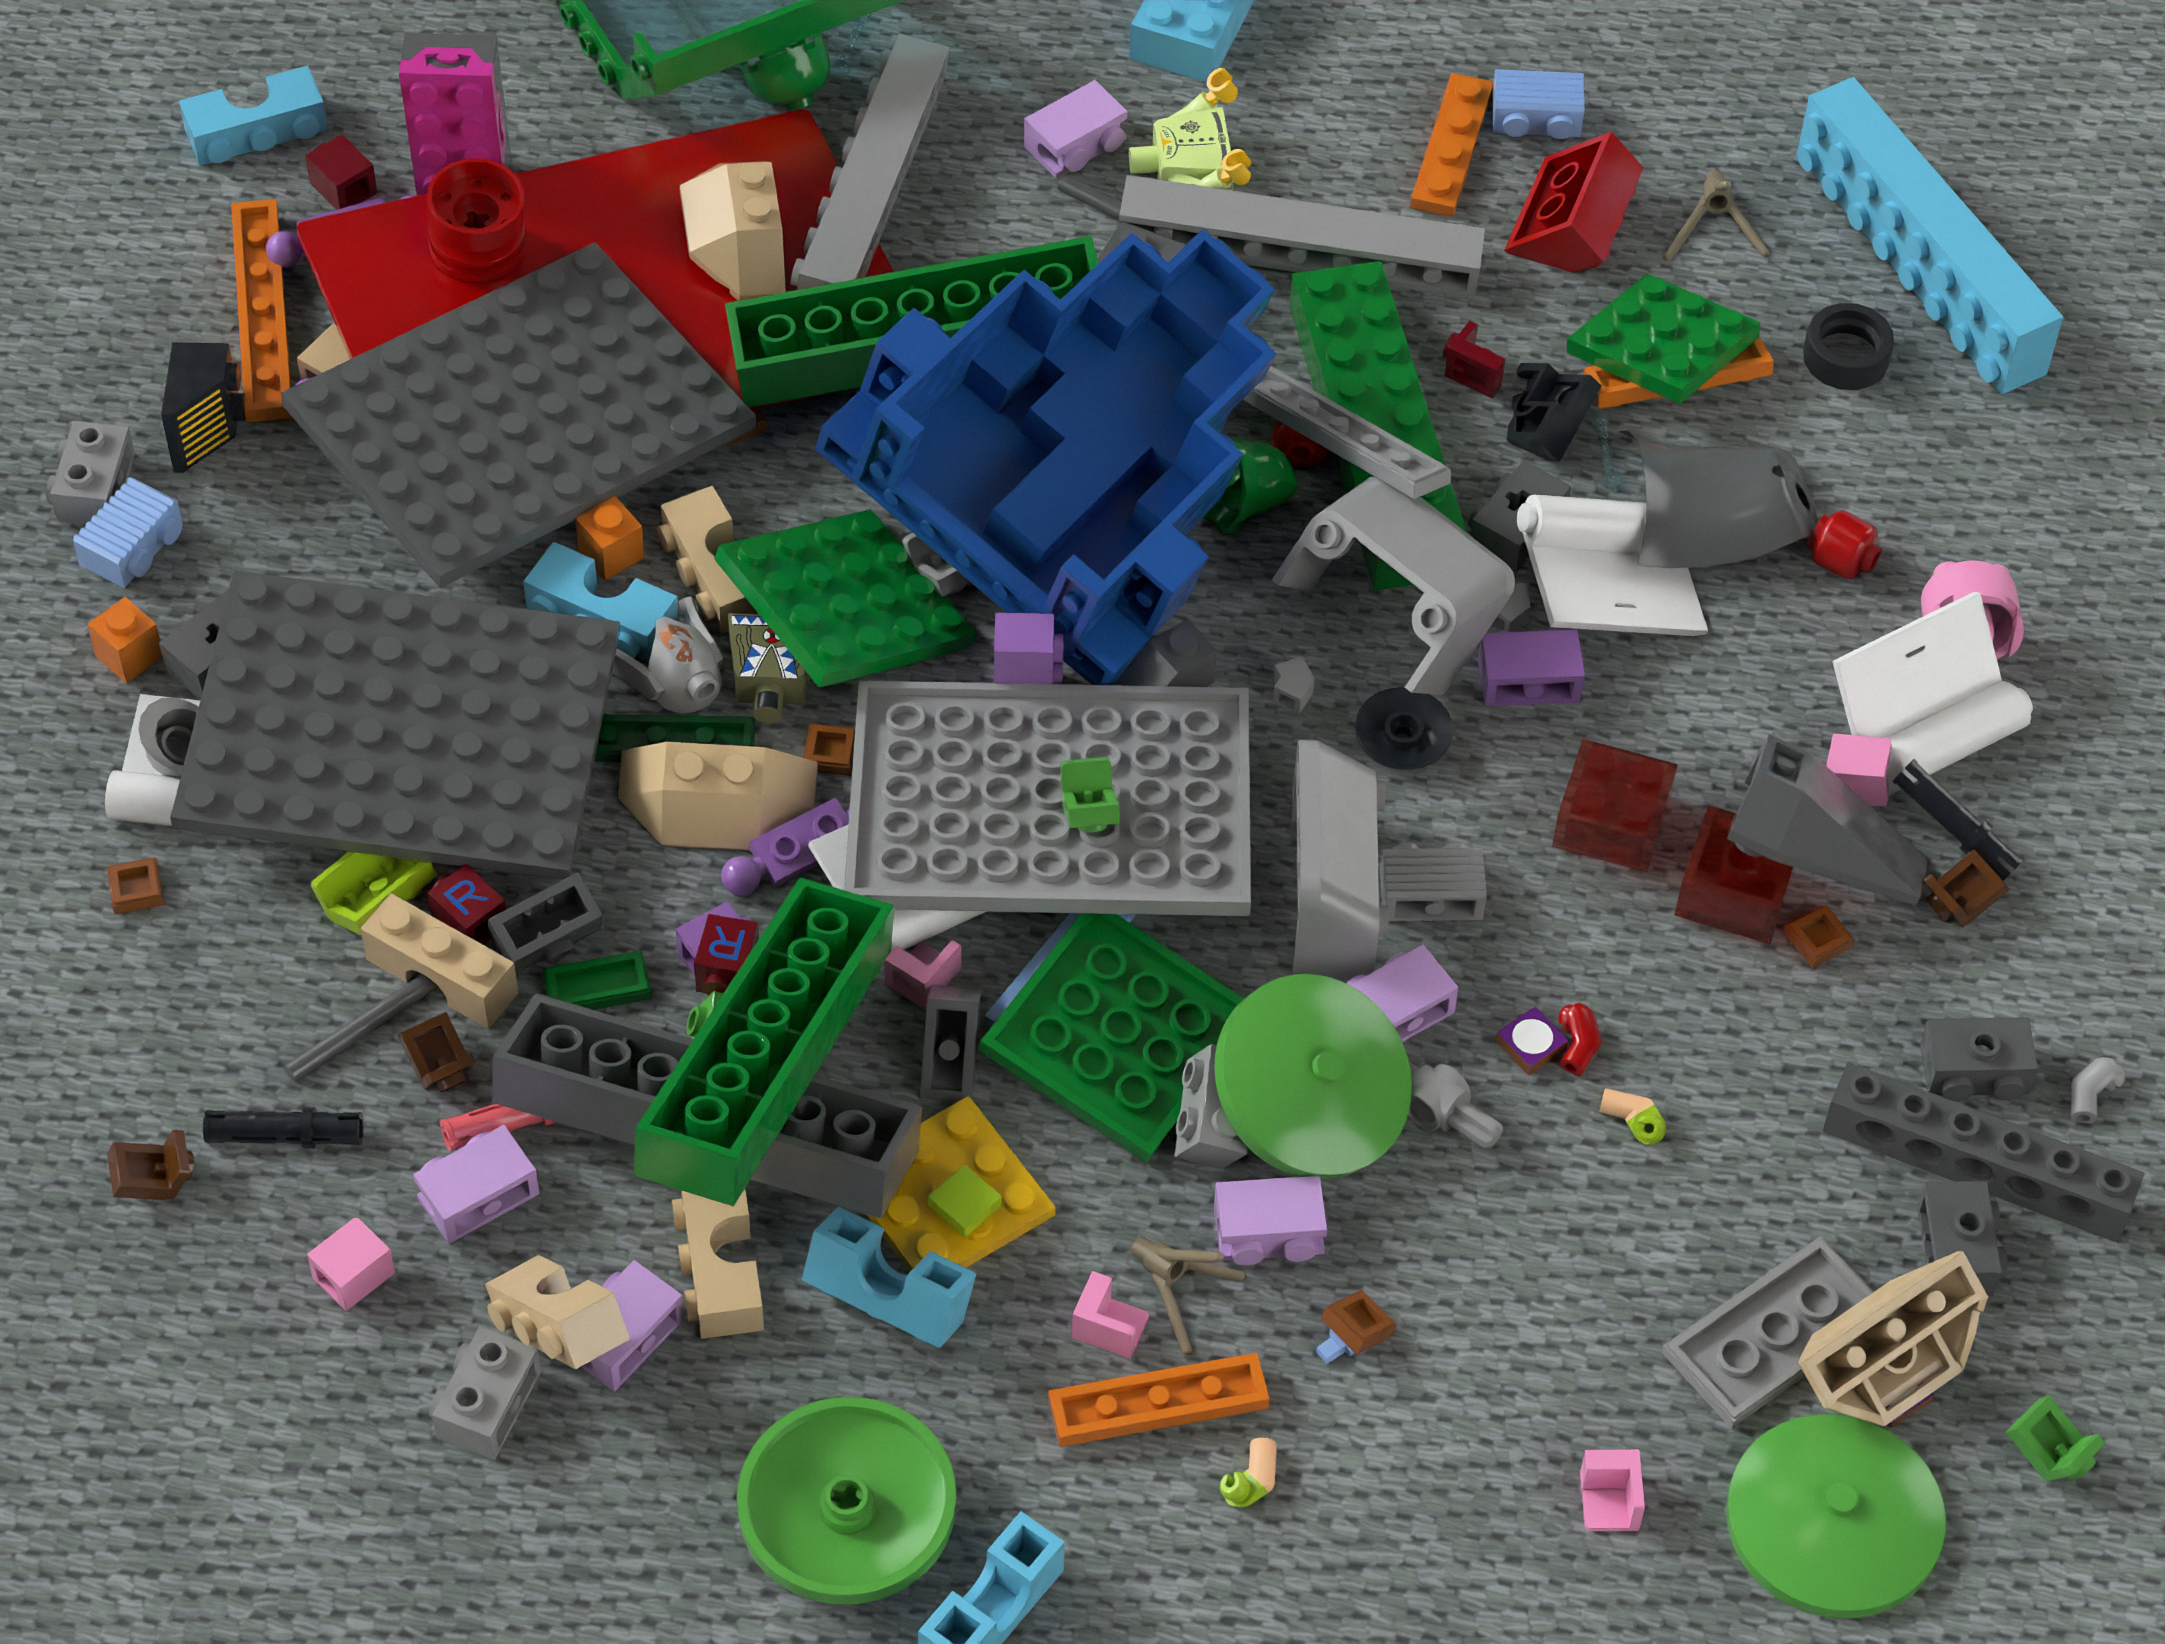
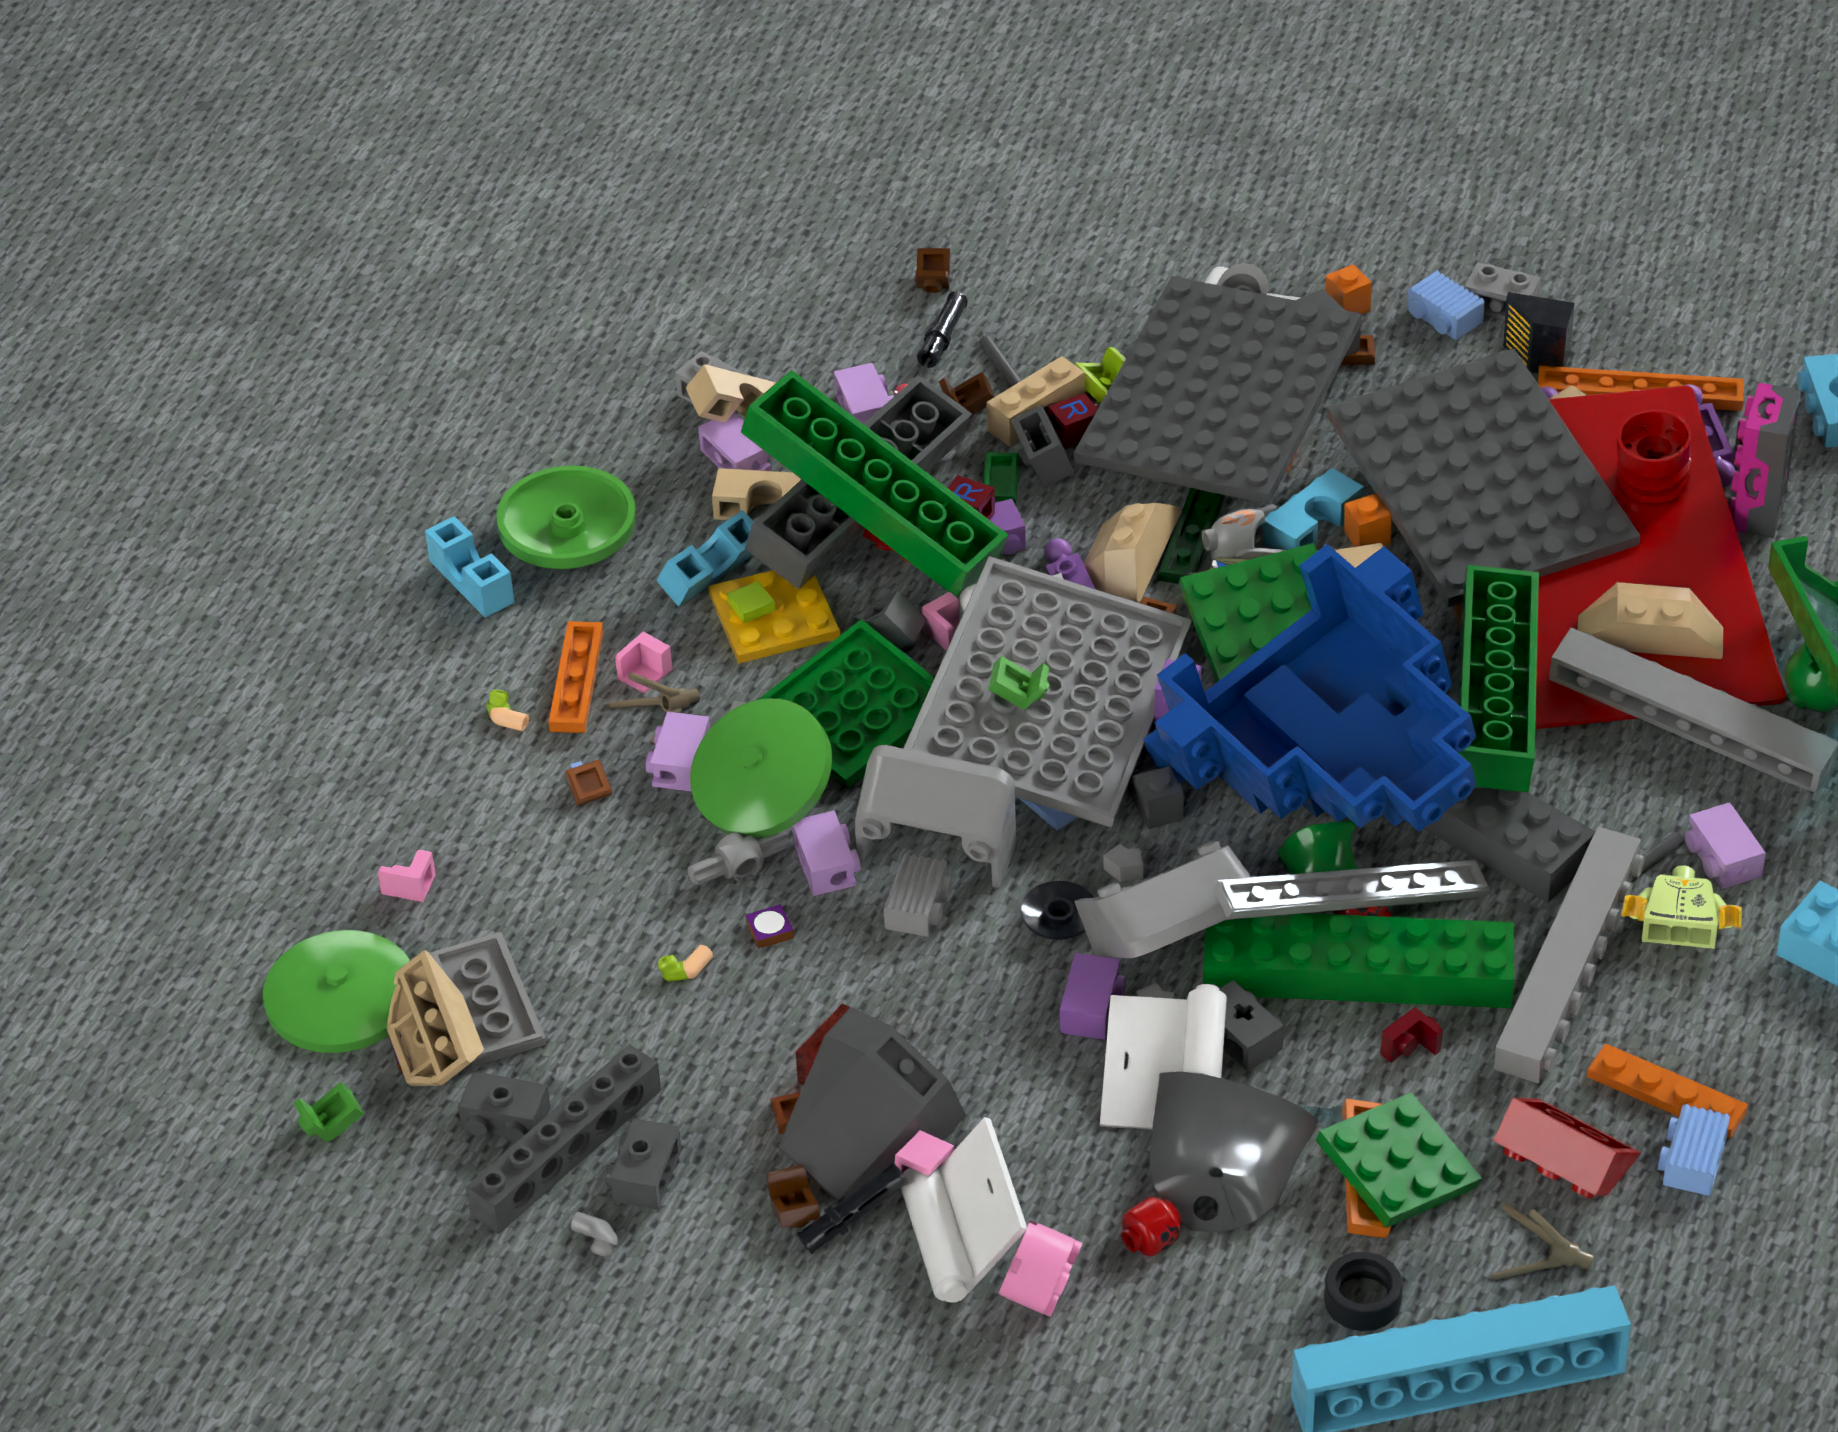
camera: 110 degrees right, 10 degrees down
(135, 885) = (1151, 288): dark orange tile -> none
(351, 1263) = (825, 335): bright pink panel -> none
(1549, 409) = (1348, 1074): black slope -> none
(1585, 1034) = (761, 953): red arm -> none
(1614, 805) = (944, 1009): clear red brick -> none

